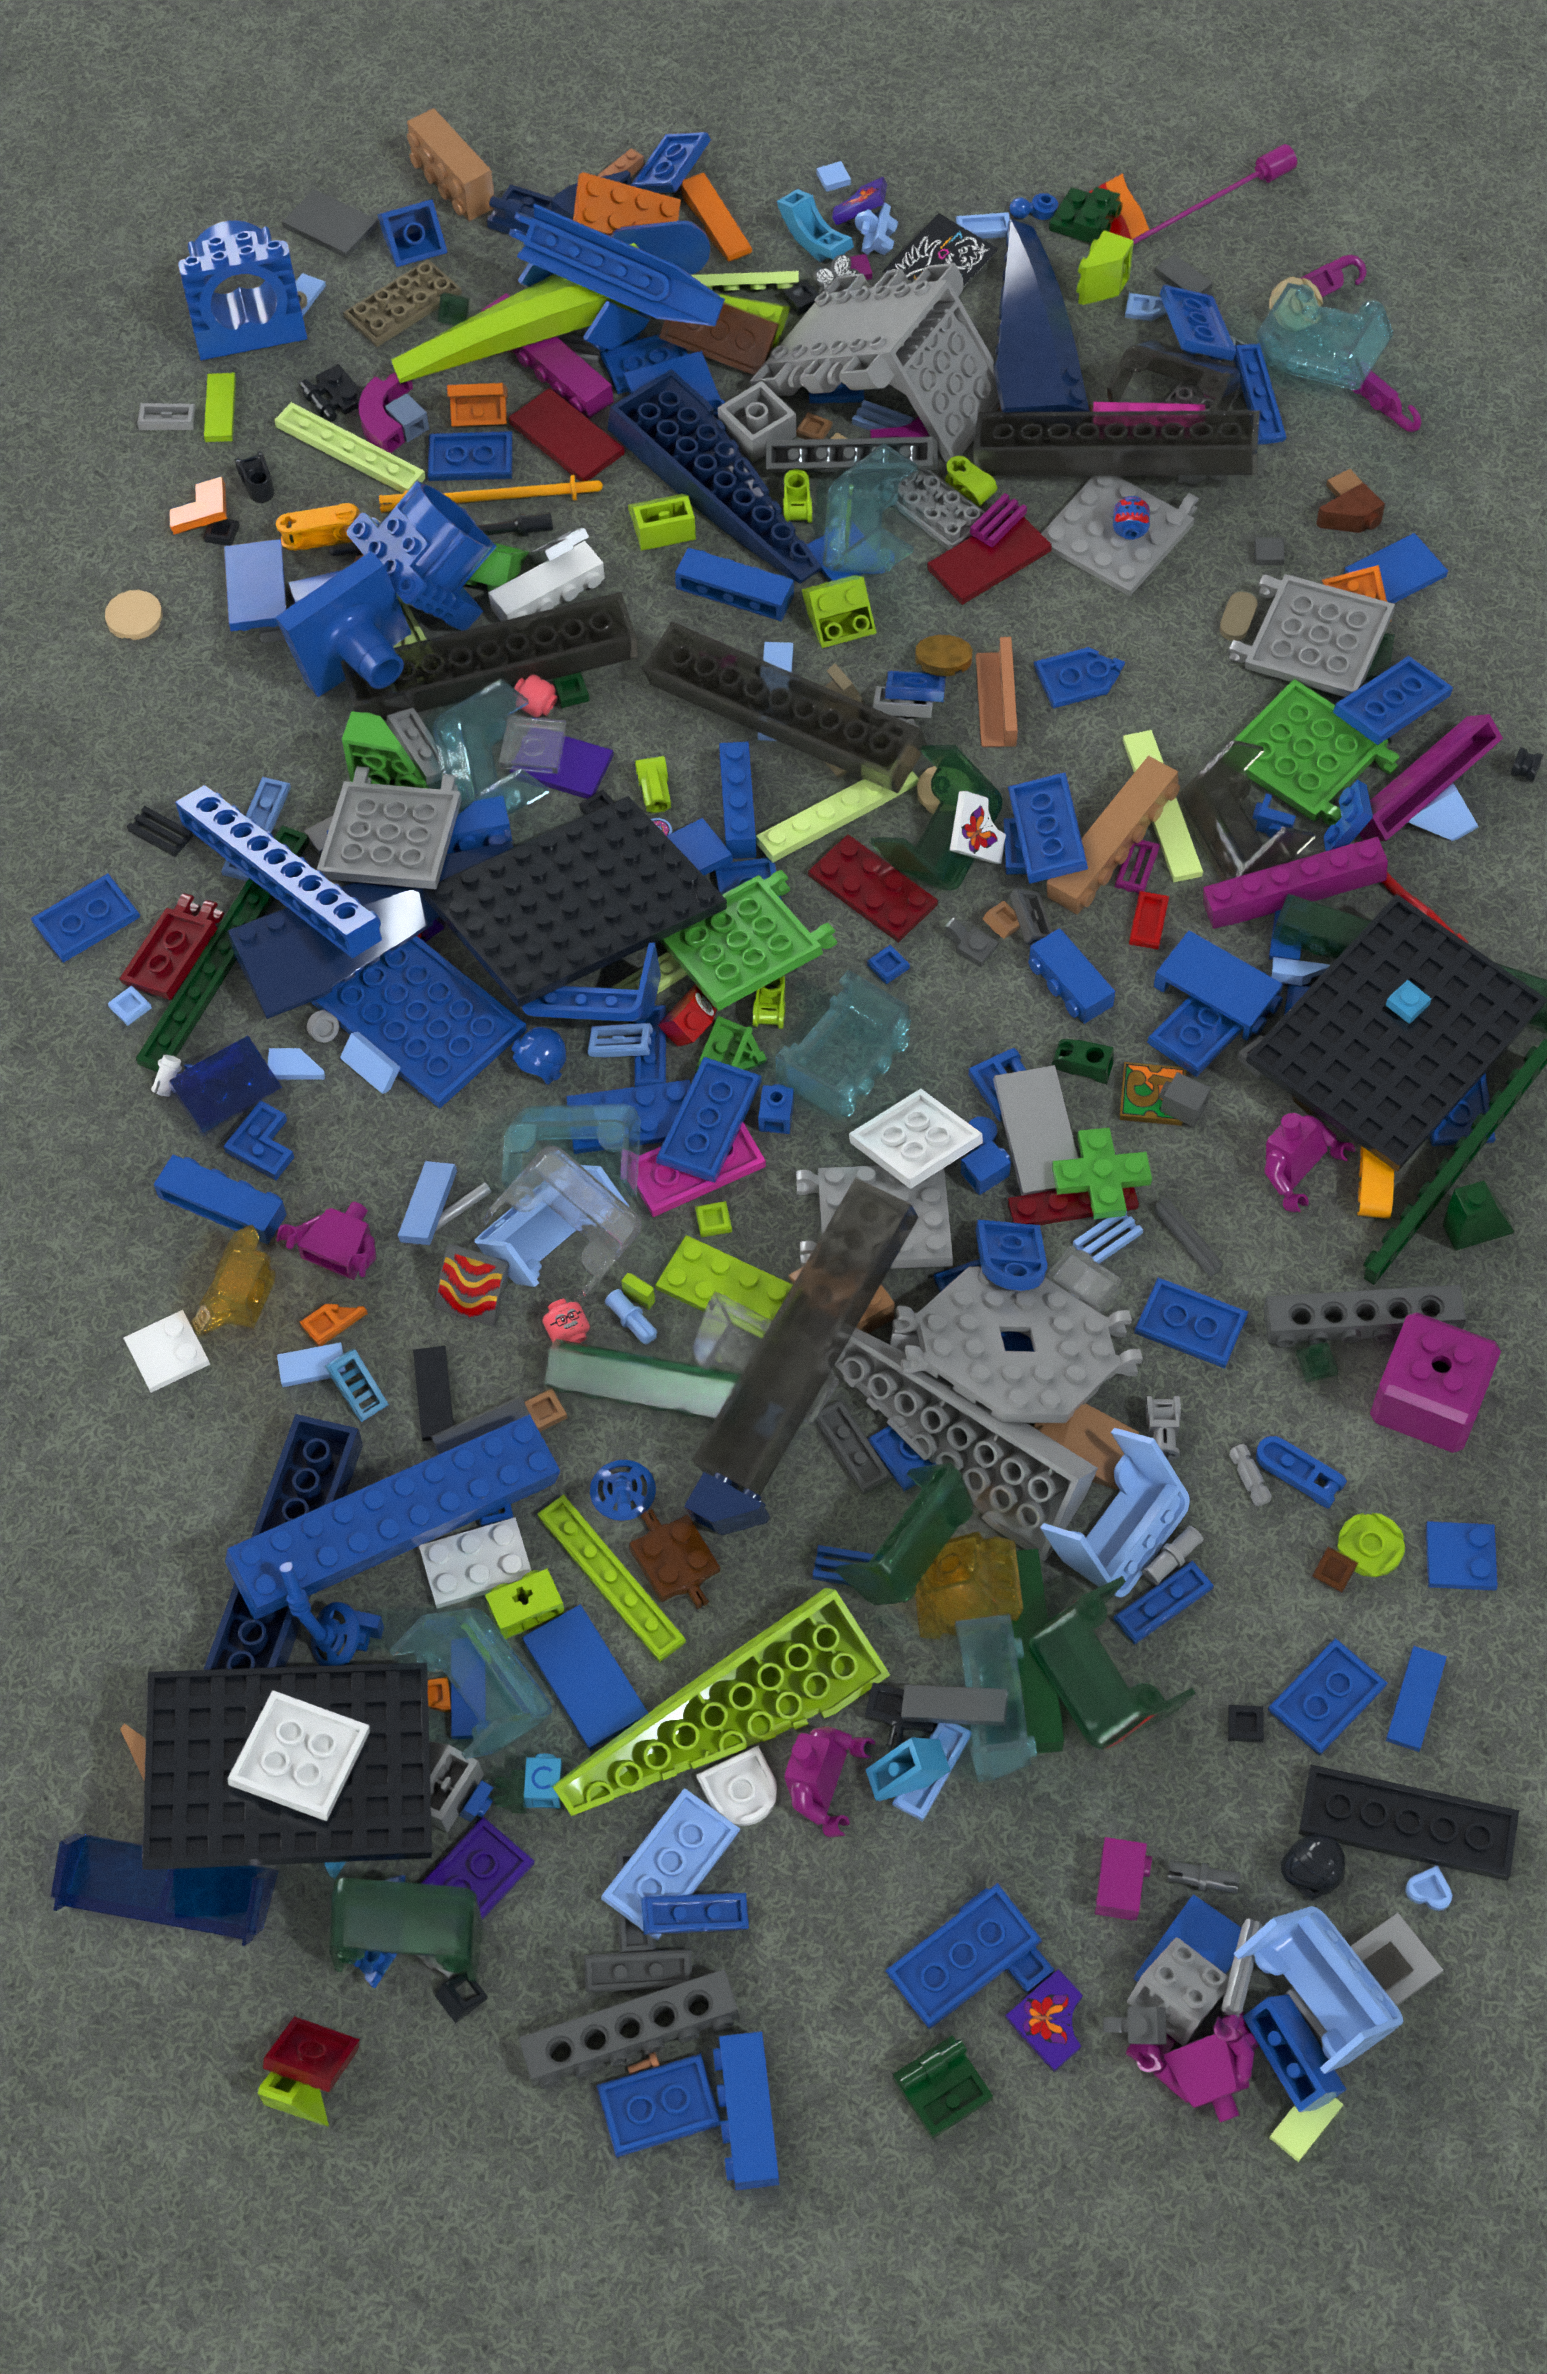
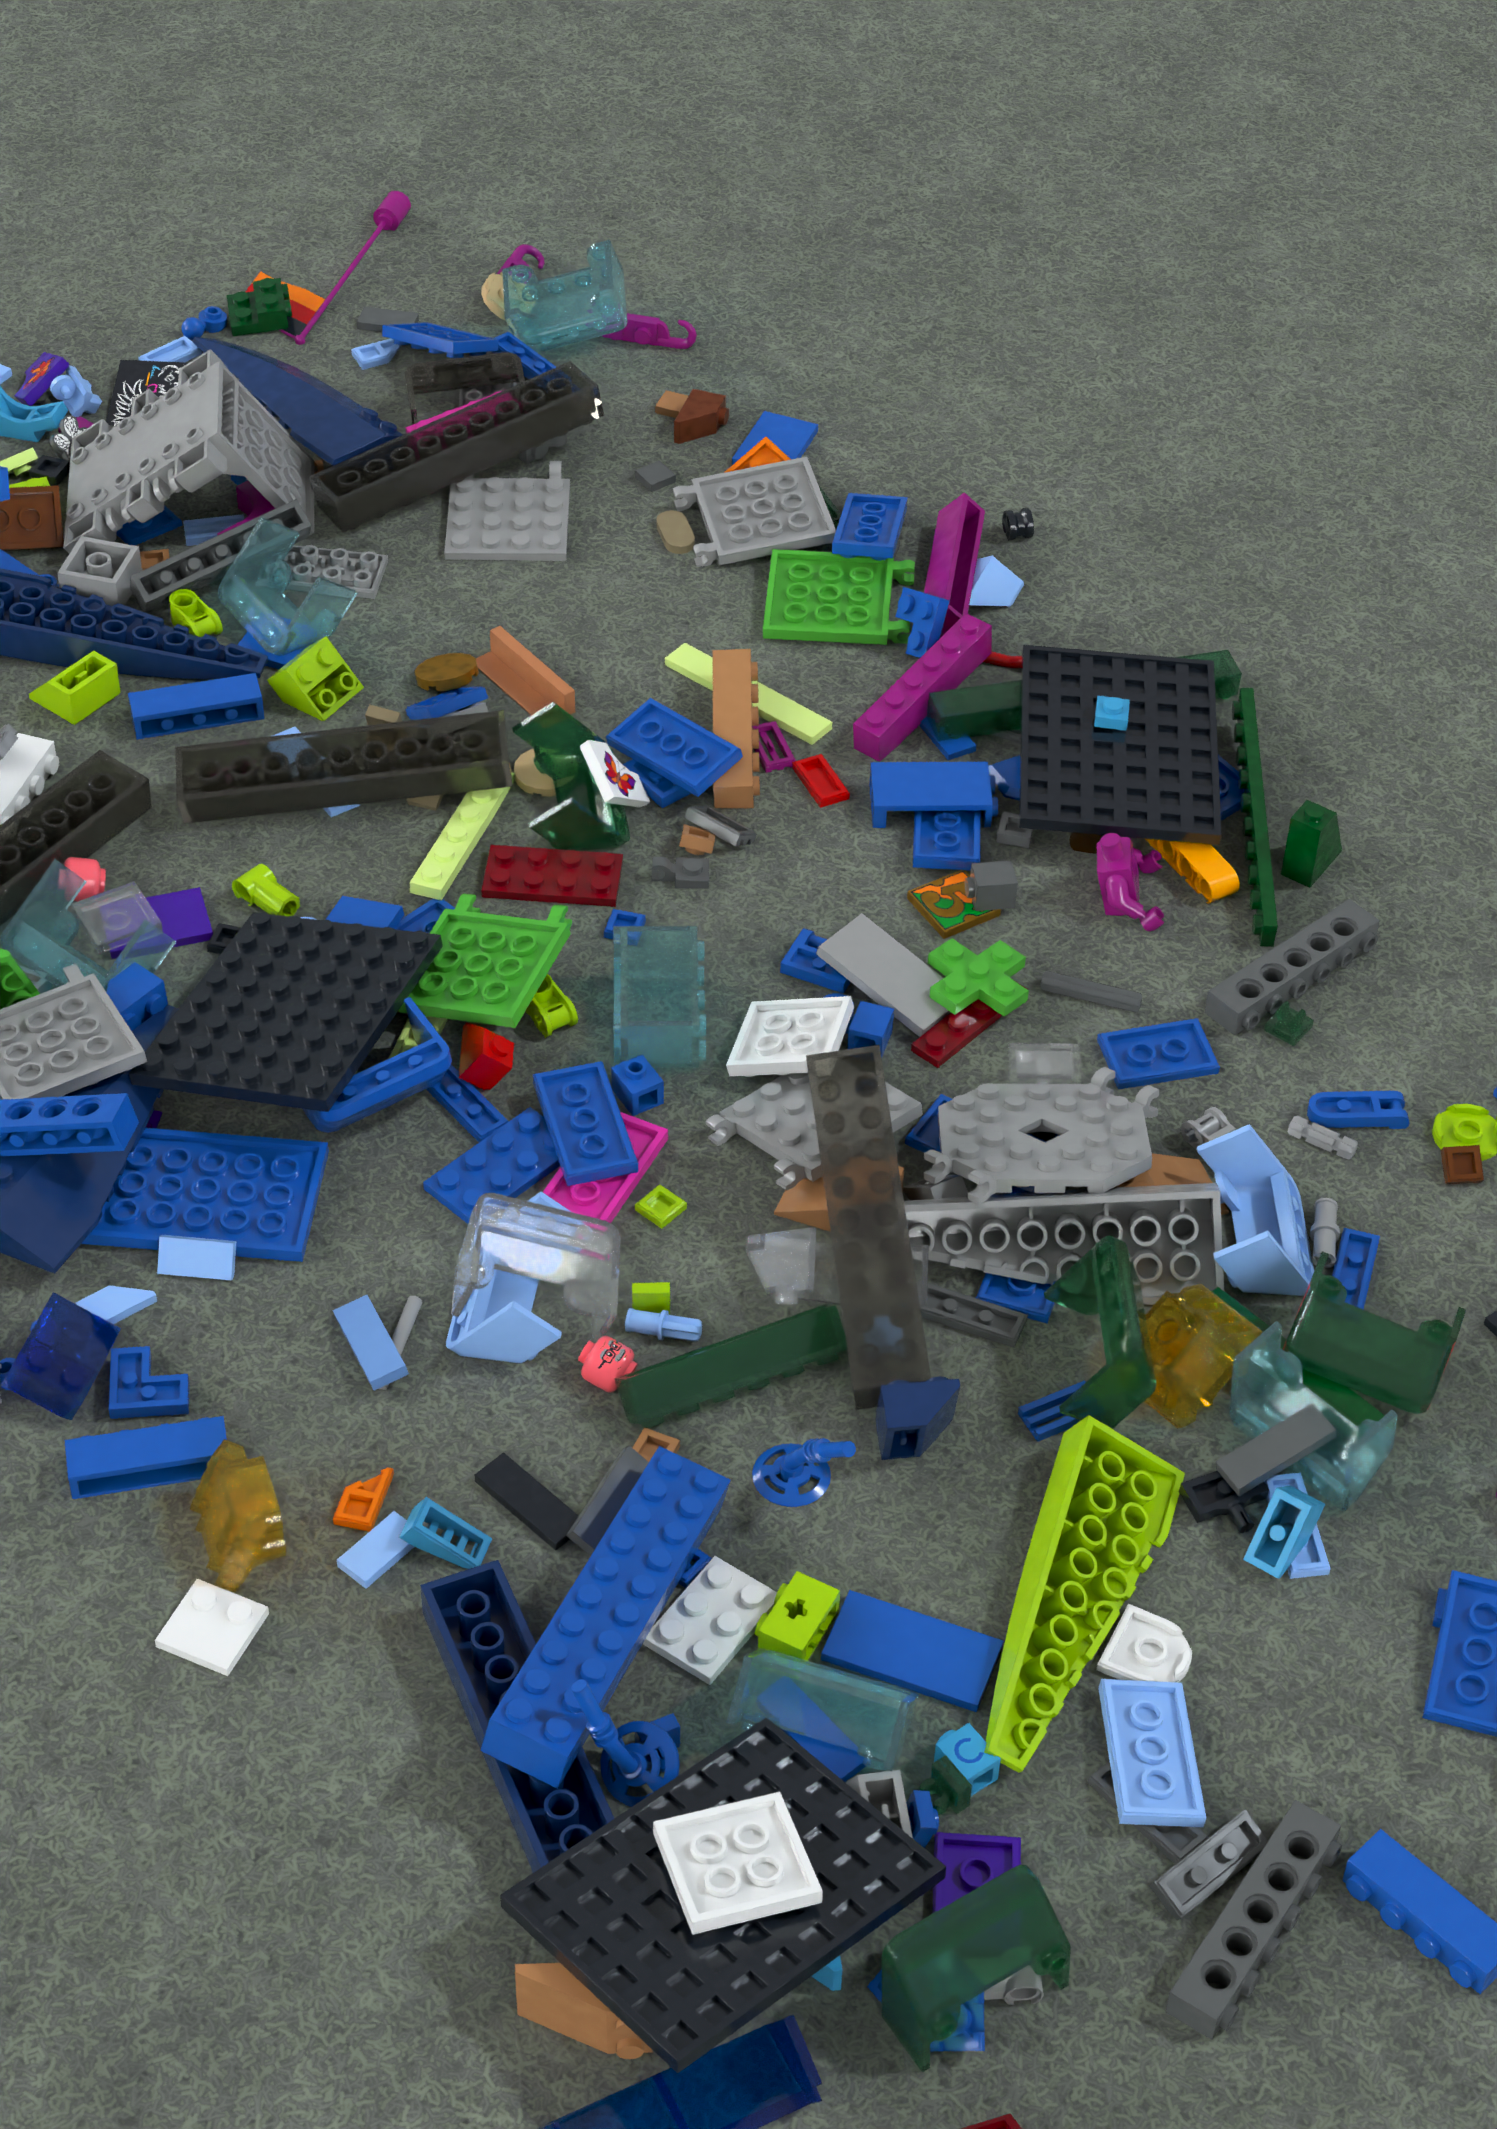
camera: 40 degrees left, 15 degrees down
(323, 1026) = (116, 1253): light grey tile -> none
(334, 1241) = (310, 1425): magenta torso -> none
(453, 2002) = (1066, 2014): black slope -> none
(471, 1285) = (487, 1380): slope -> none
(540, 1053) = (367, 1155): blue cap -> none
(571, 690) = (114, 859): dark green plate -> none
(611, 1578) = (854, 1552): lime tile -> none
(612, 1124) = (428, 1212): clear light blue windscreen -> none
(619, 1045) = (435, 1113): light blue tile -> none
(642, 2065) = (1298, 1934): nougat piece -> none
(658, 2105) = (1342, 1970): blue tile -> none
(674, 1558) = (898, 1499): reddish brown plate -> none
(694, 1913) = (1217, 1776): blue tile -> none
(702, 1270) = (710, 1253): lime plate -> none
(732, 1045) = (541, 1057): bright green slope -> none
(737, 799) = (362, 862): blue brick -> none
(815, 1773) = (1210, 1589): magenta torso -> none
(971, 481) = (343, 533): lime piece -> none
(976, 567) = (415, 584): dark red tile -> none
(985, 524) = (402, 536): magenta tile -> none
(1009, 1251) = (963, 1077): blue tile -> none
(1071, 976) = (799, 849): blue brick -> none
(1077, 676) = (578, 636): blue tile -> none
(1084, 1059) = (876, 902): dark green leg -> none
(1105, 268) = (319, 333): lime slope -> none
(1128, 1222) = (1030, 1009): light blue tile -> none
(1131, 517) = (520, 493): blue head -> none
(1222, 826) = (789, 670): clear smoke windscreen -> none
(1271, 820) = (855, 657): blue bracket -> none
(1296, 971) = (987, 752): light blue tile -> none
(1431, 1403) = (1405, 976): magenta plate -> none

